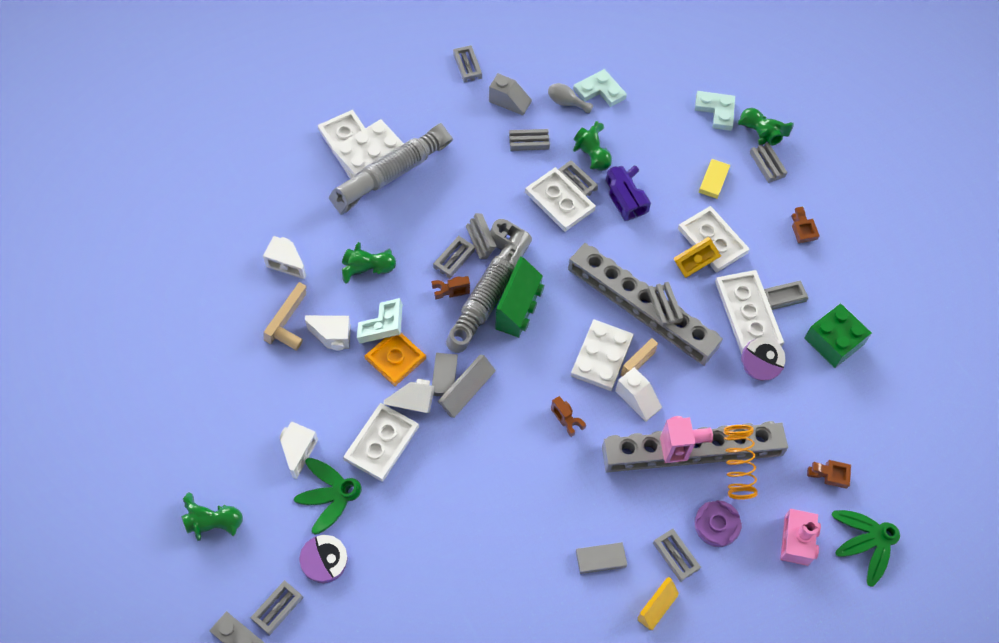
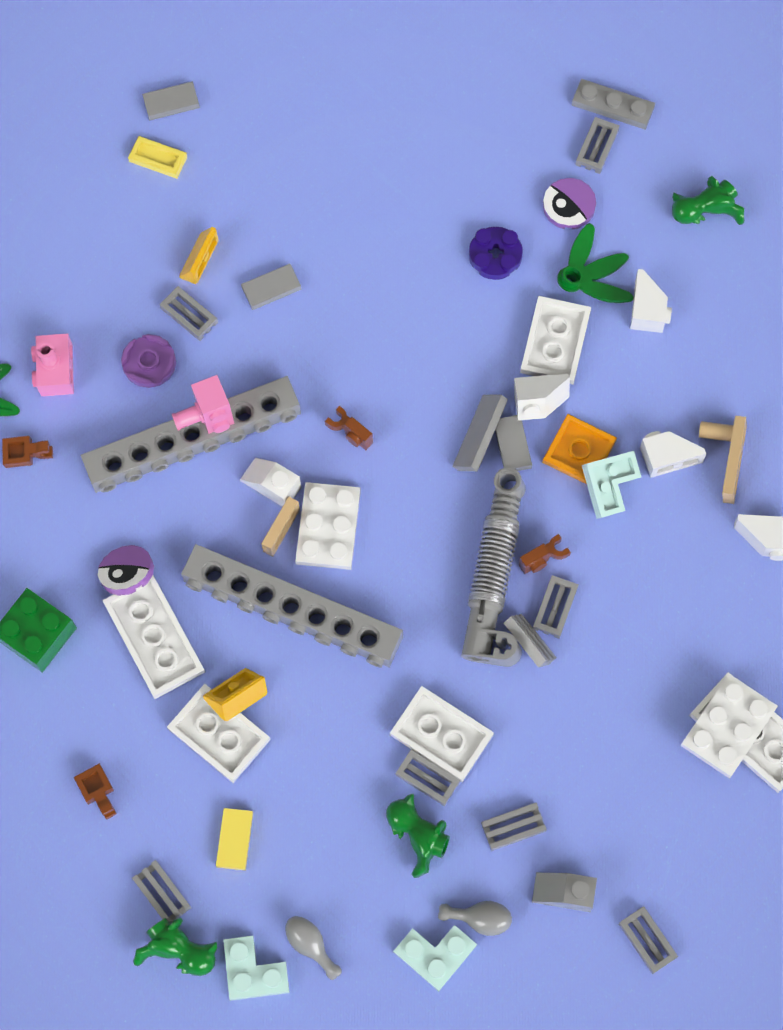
camera: 170 degrees right, 10 degrees up
(360, 261) = (670, 556): green animal -> none
(390, 165) = (699, 672): light grey piece -> none
(408, 544) = (505, 241): none -> dark purple plate
(519, 299) = (450, 557): green slope -> none
(625, 194) = (365, 784): dark purple piece -> none
(660, 289) = (251, 575): light grey tile -> none
(680, 110) = (309, 942): none -> light grey piece
(736, 436) = (142, 400): light orange piece -> none
(786, 295) = (110, 679): light grey tile -> none

